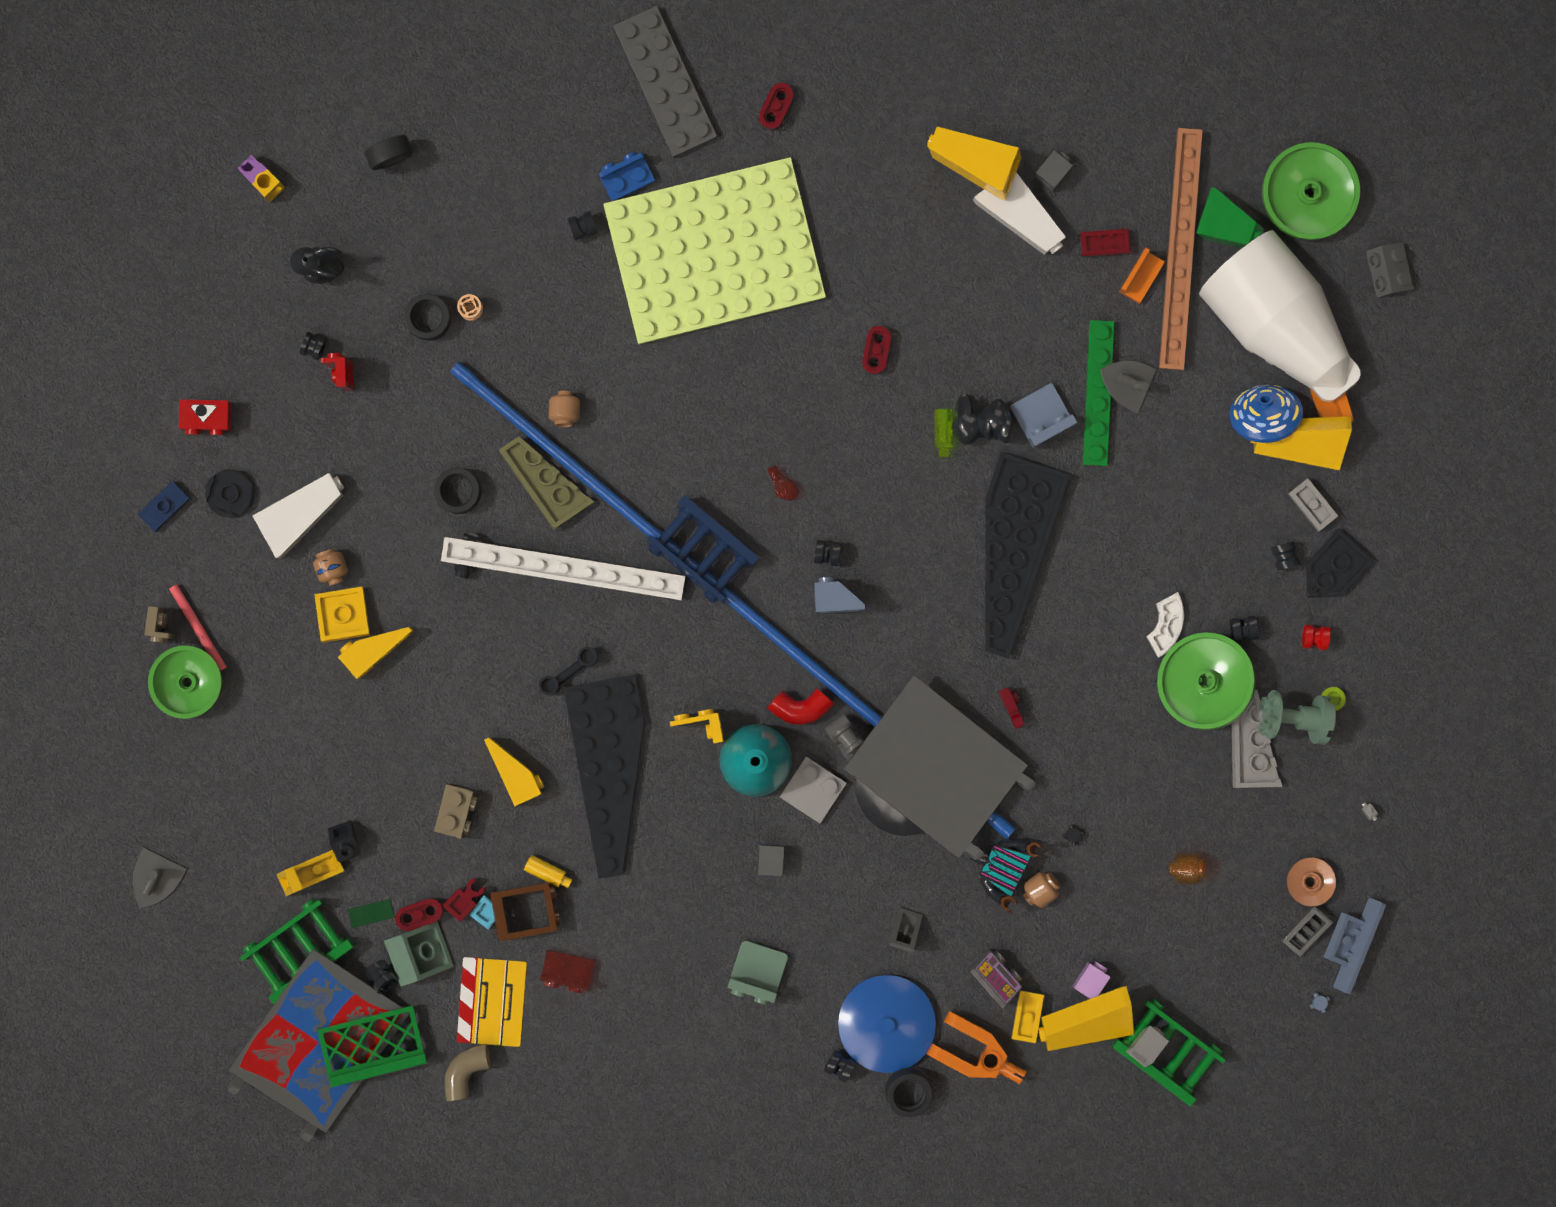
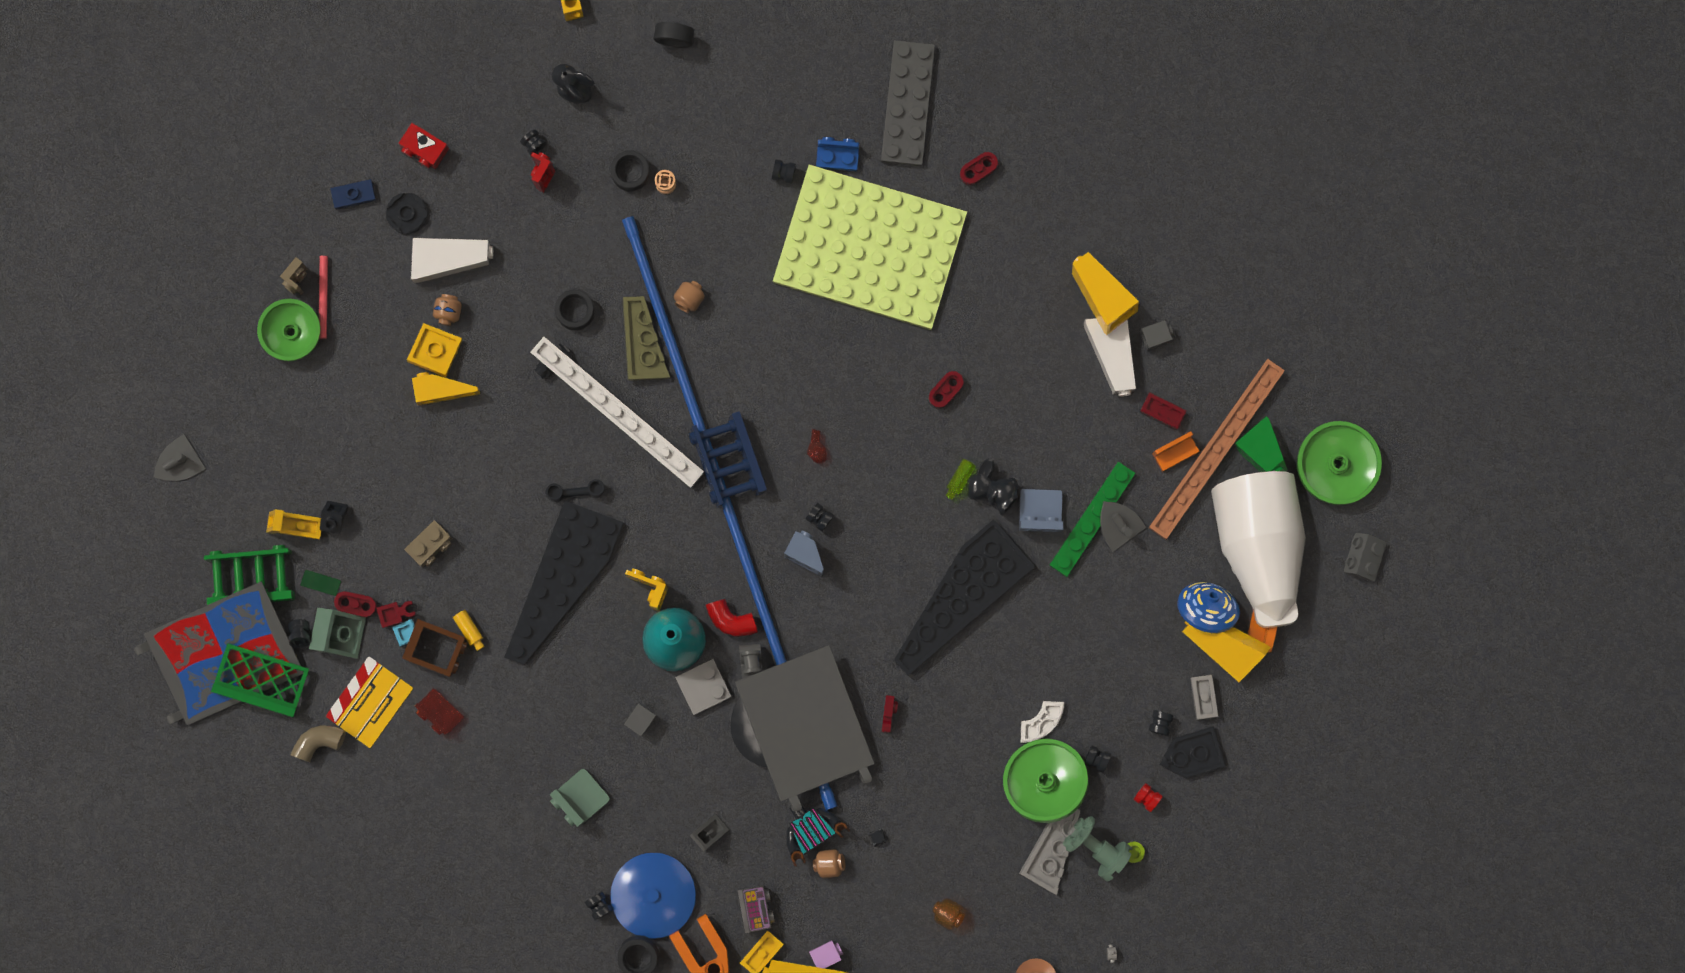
camera: 30 degrees right, 5 degrees down
(518, 778) = (489, 546): yellow slope -> none

